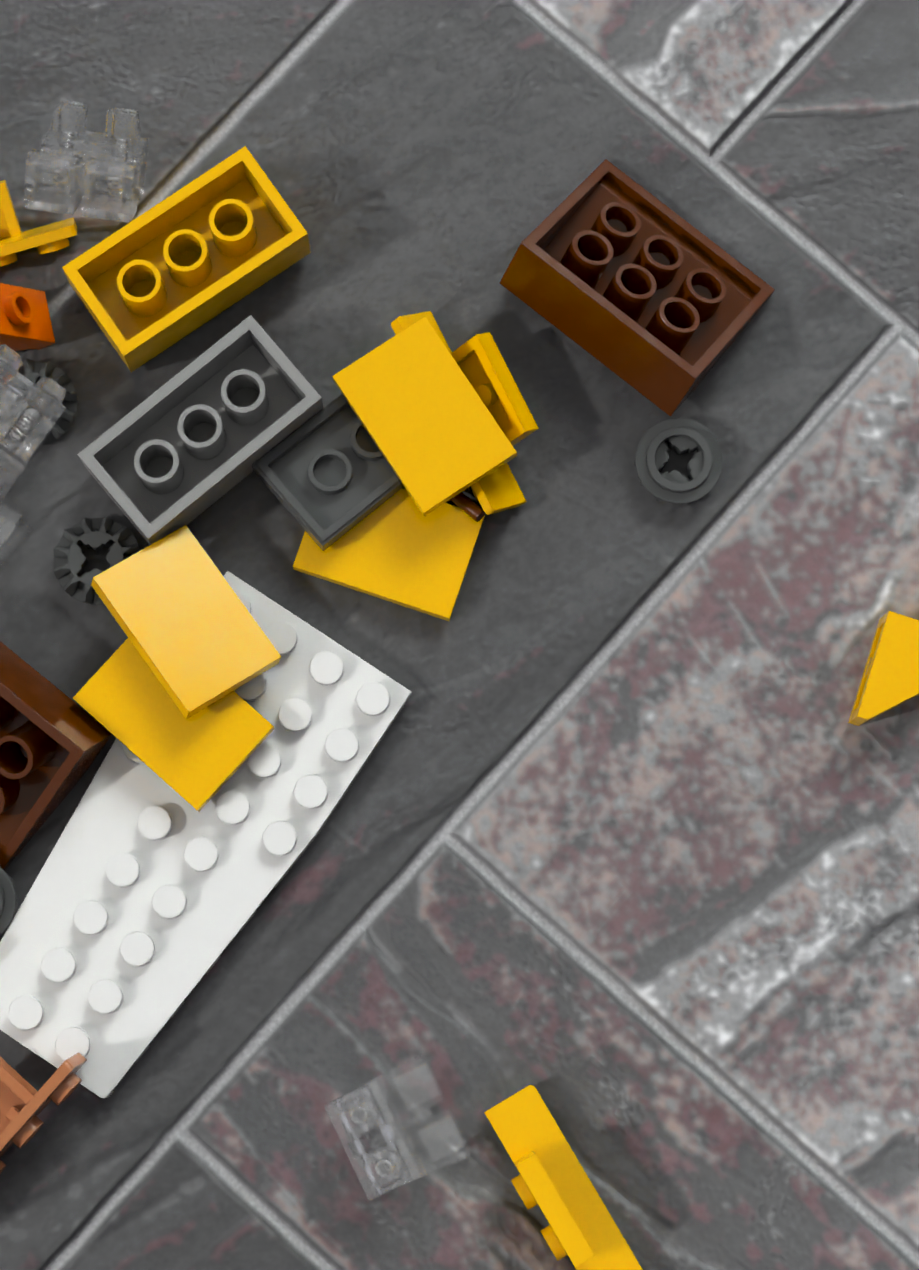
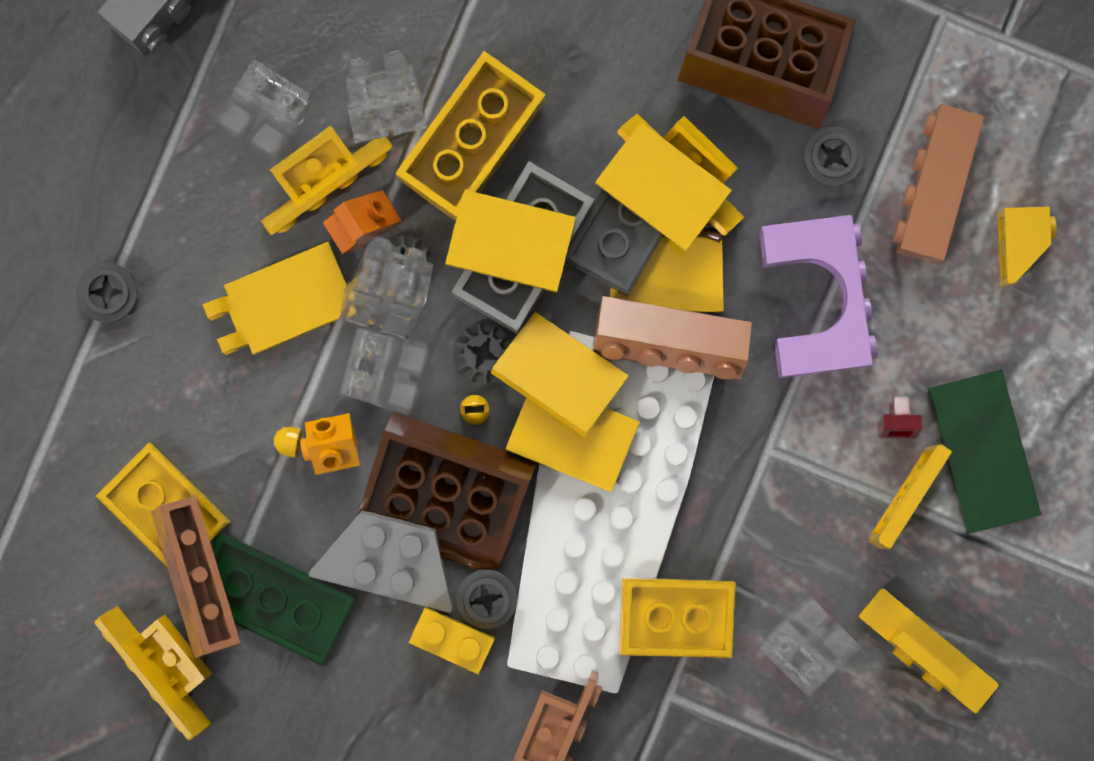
camera: 20 degrees left, 5 degrees up
(53, 644) = (474, 418): none -> yellow hinge
(183, 412) = (510, 241): none -> yellow tile
(227, 1022) = (676, 617): none -> yellow tile
(360, 627) = (672, 338): none -> nougat brick
(614, 965) = (909, 496): none -> yellow tile
(631, 580) = (833, 246): none -> lavender arch
(638, 859) = (899, 421): none -> dark red tile
(745, 943) = (987, 451): none -> dark green tile
(810, 549) = (938, 184): none -> nougat brick

